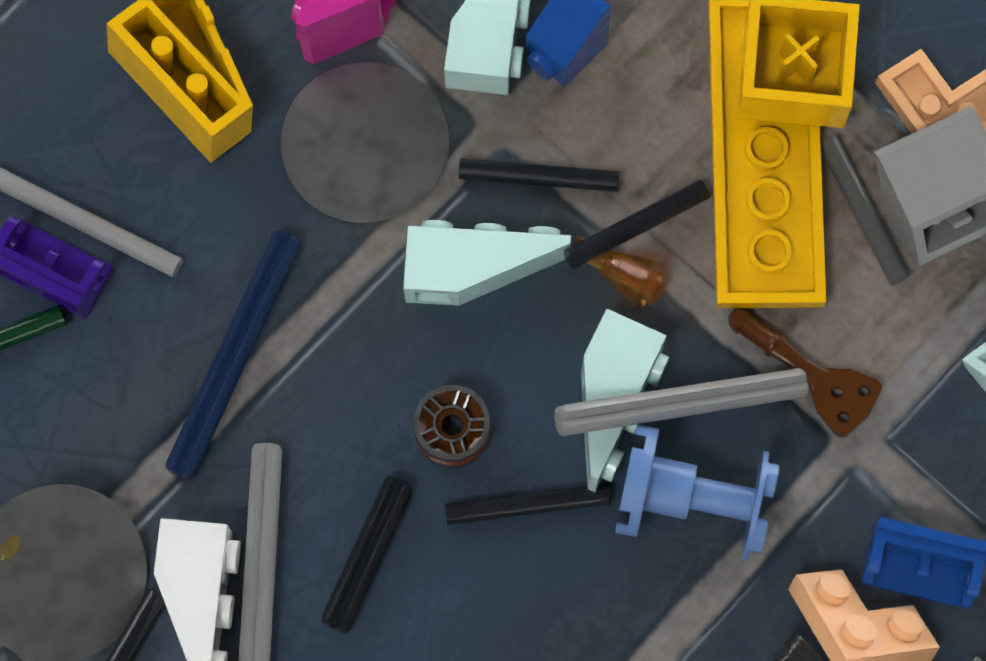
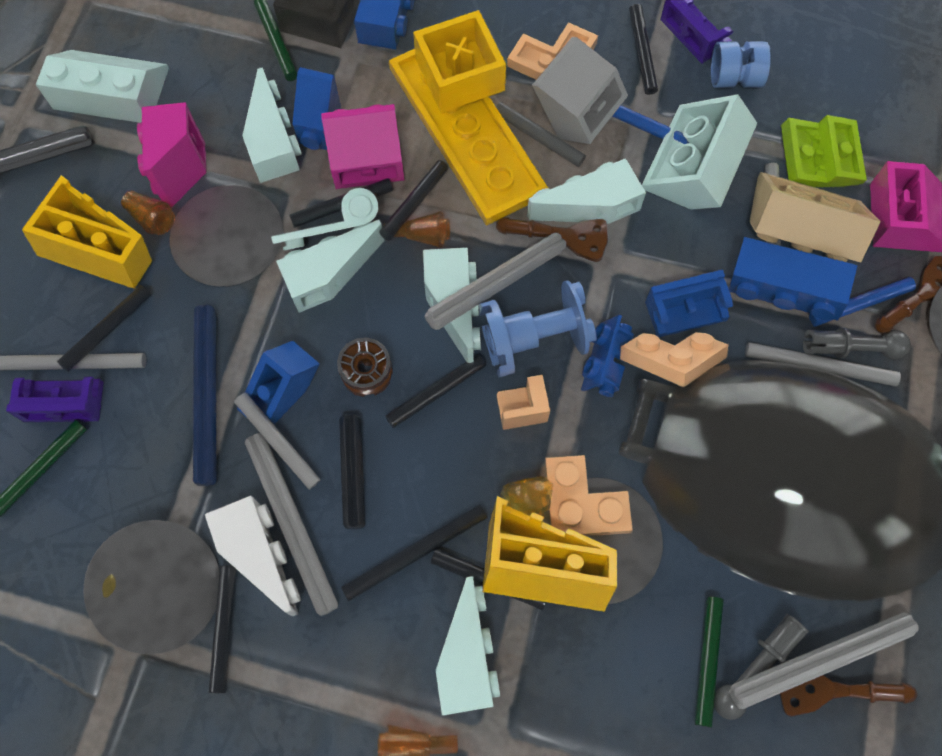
camera: 30 degrees left, 5 degrees down
(149, 199) = (103, 328): none -> black bar
(277, 62) = (149, 212): none -> clear orange cone
(293, 466) = (277, 440): none -> light grey bar
(329, 392) = (281, 379): none -> blue slope
(550, 208) = (357, 208): none -> light aqua door
(605, 117) = (363, 145): none -> dark pink slope
(628, 582) = (524, 405): none -> light nougat panel
(756, 590) = (600, 368): none -> blue hinge
(895, 348) = (602, 194): none -> light aqua slope

